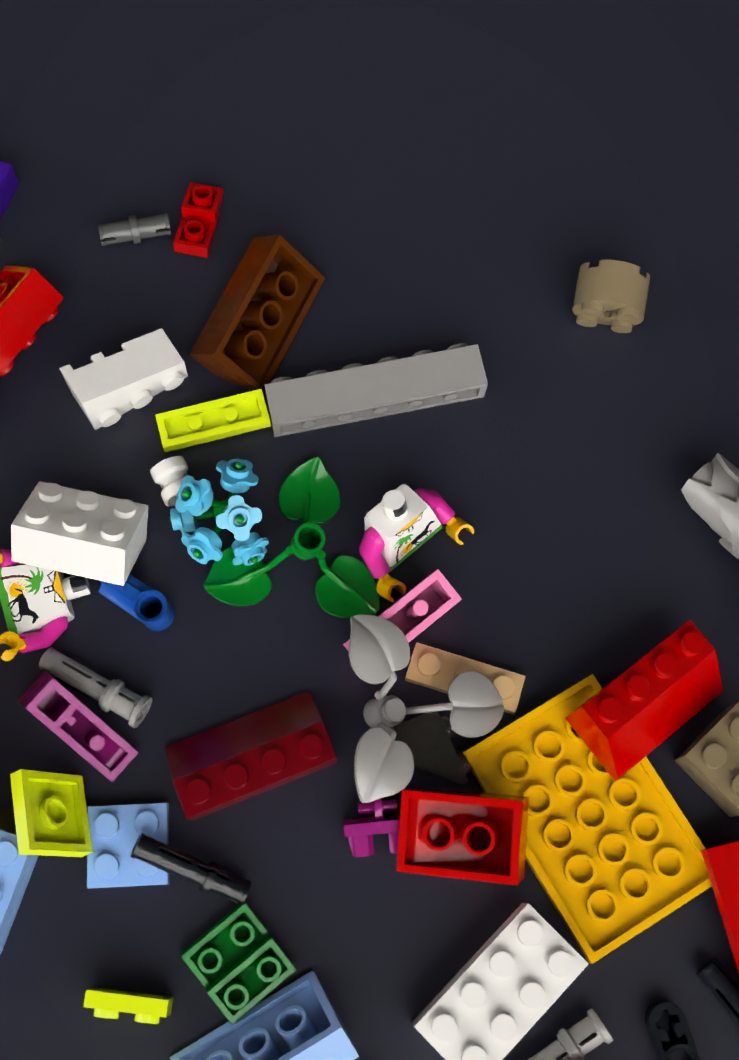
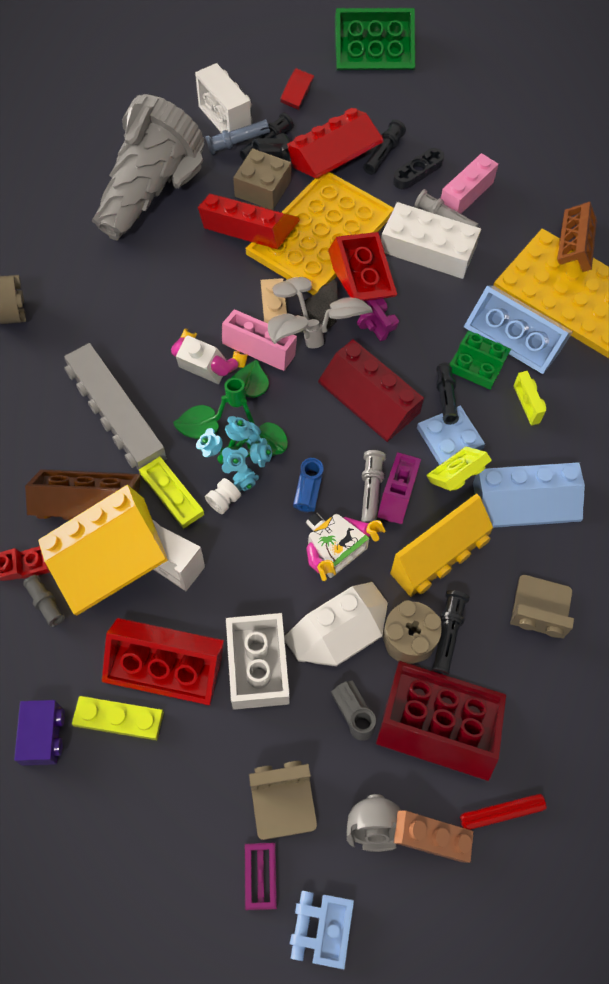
camera: 110 degrees left, 10 degrees down
(79, 533) = (284, 526): white brick -> none
(149, 303) = (103, 549): none -> yellow slope

